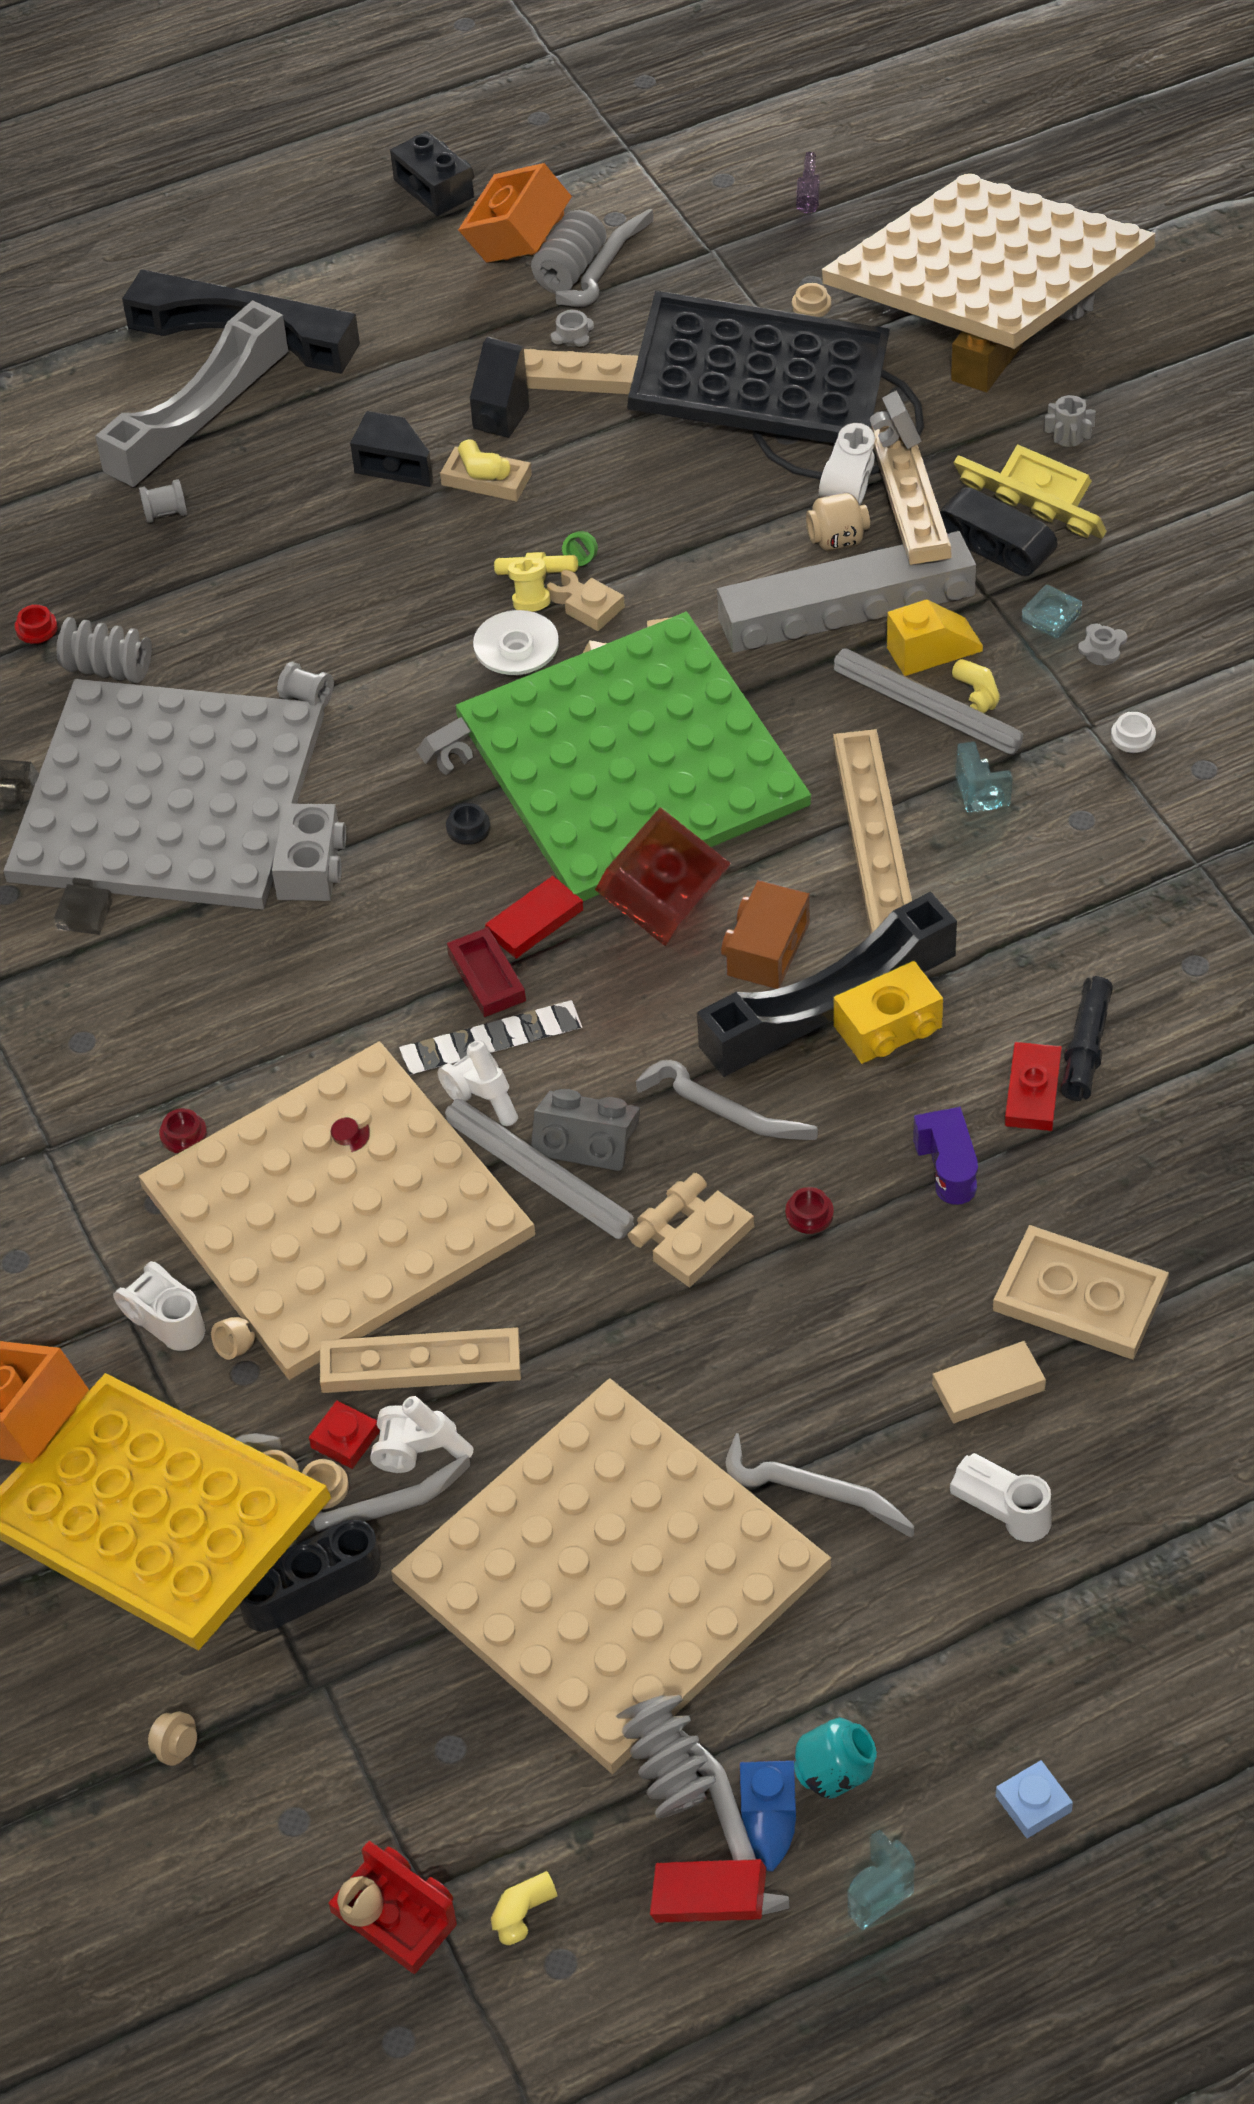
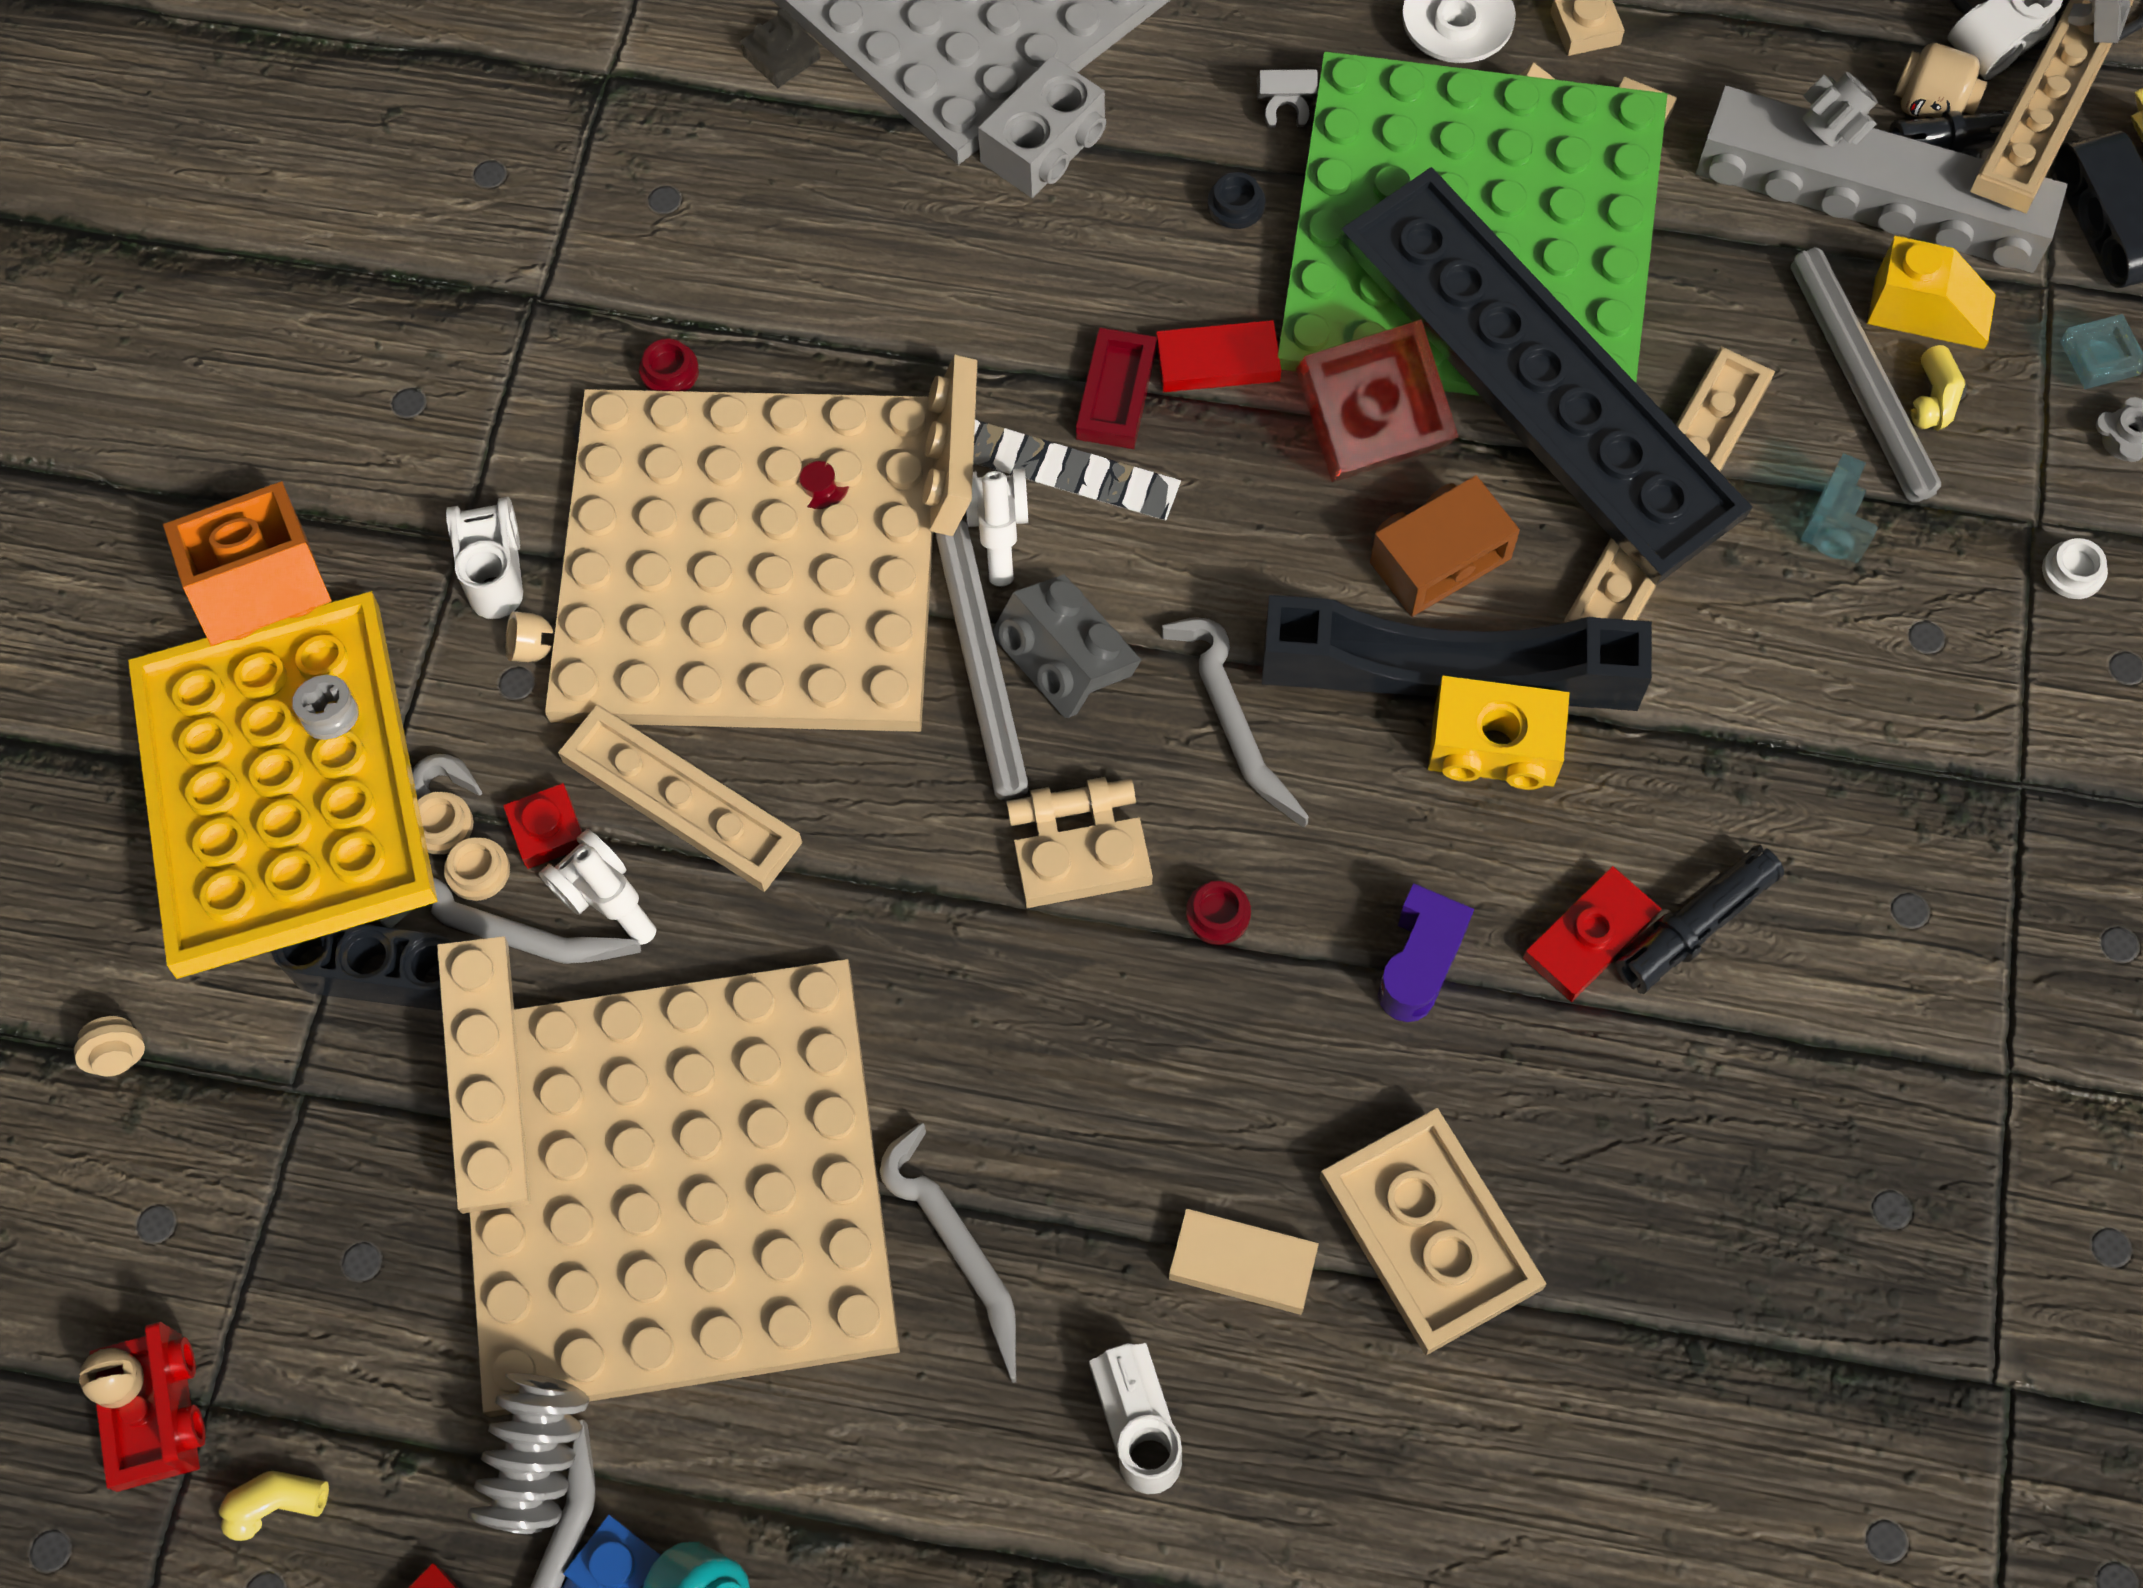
camera: 35 degrees right, 15 degrees up
(155, 1454) = (313, 698): none -> light grey bush
(419, 1057) = (951, 445): none -> tan plate
(447, 1575) = (483, 1075): none -> tan plate
(748, 802) = (1545, 375): none -> black plate
(800, 560) = (1839, 109): none -> light grey gear
(869, 539) = (1953, 130): none -> black pin

